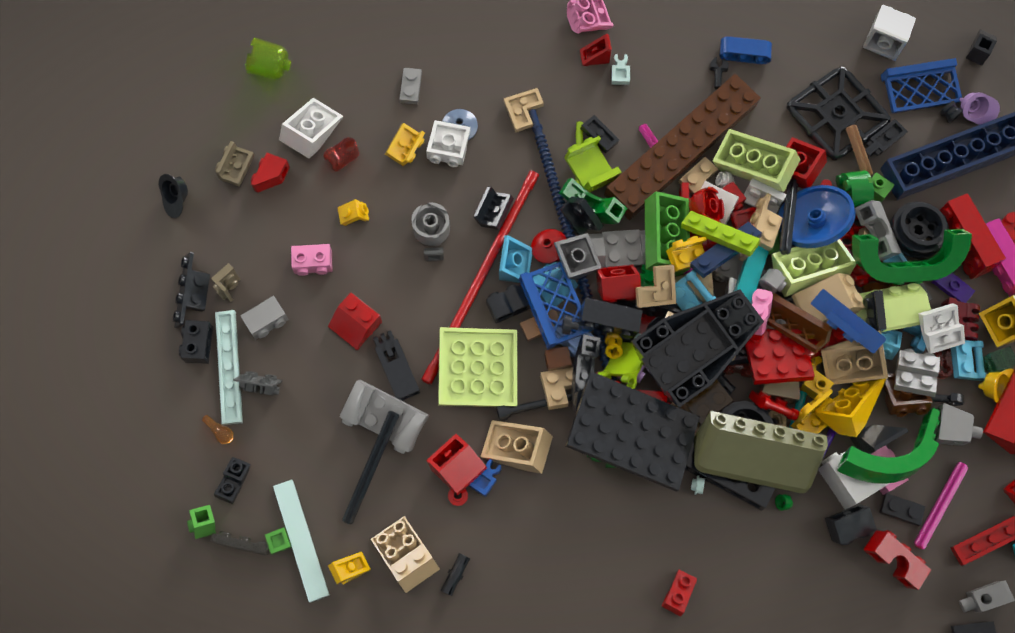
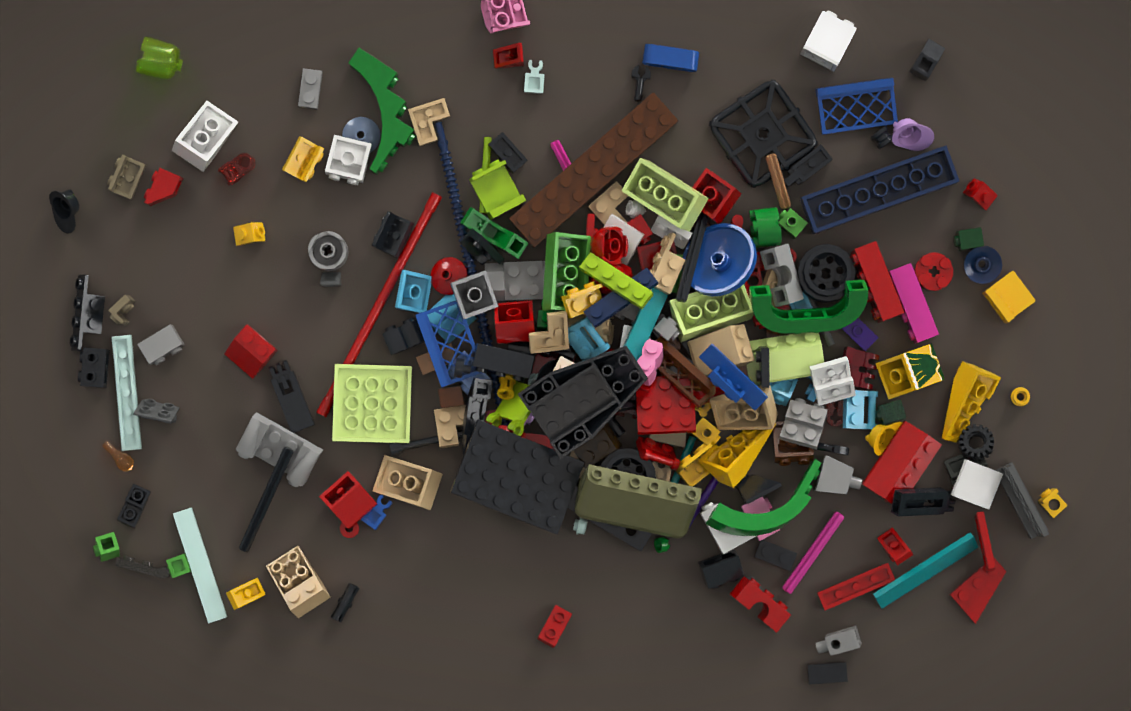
camera: 10 degrees right, 15 degrees up
(311, 259) = (207, 284): bright pink brick -> none
(477, 75) = (394, 131): none -> green arch

